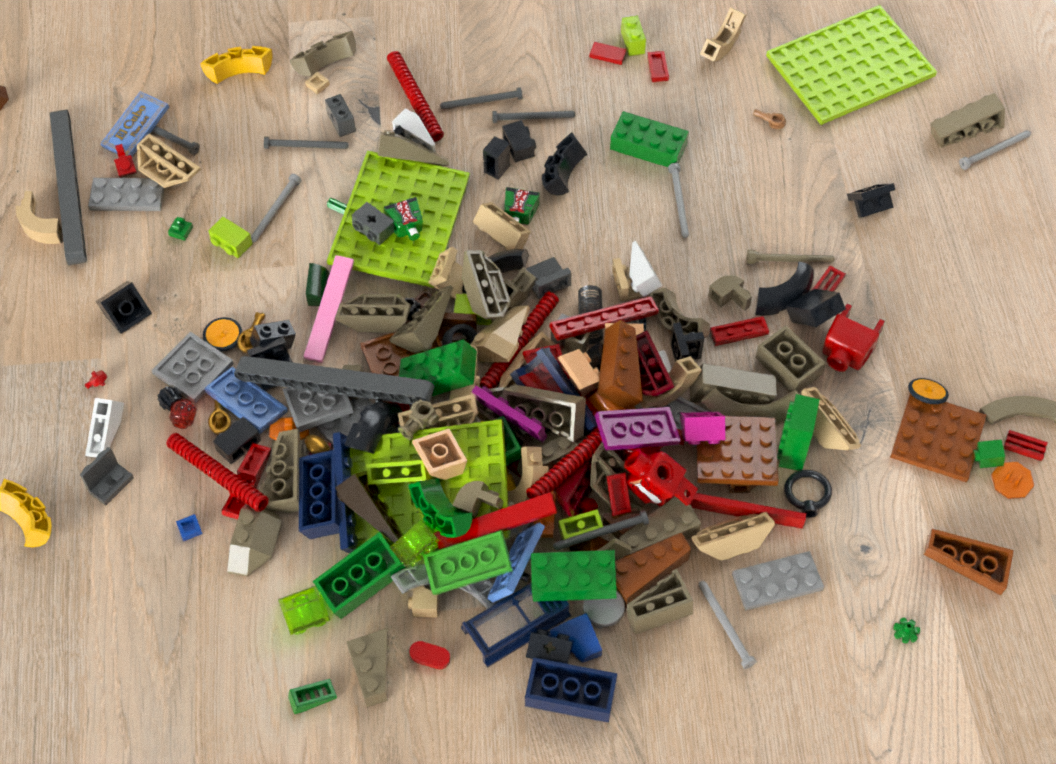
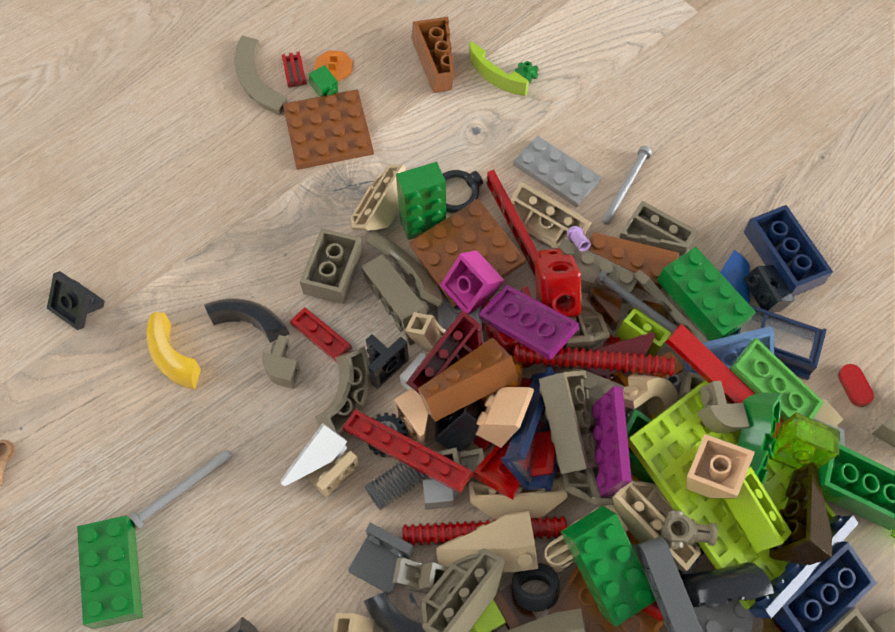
camera: 125 degrees left, 5 degrees up
(618, 494) = (594, 312): red tile -> none
(690, 527) = (576, 235): none -> lavender pin
(754, 257) = (218, 368): dark tan piece -> none
(799, 232) = (175, 366): none -> yellow brick
(815, 307) = (258, 270): black brick -> none
(836, 272) = (209, 292): red tile -> none
(850, 342) = (278, 228): red piece -> none
(928, 391) = (288, 151): light orange wheel -> none
(945, 594) = (511, 83): none -> lime slope

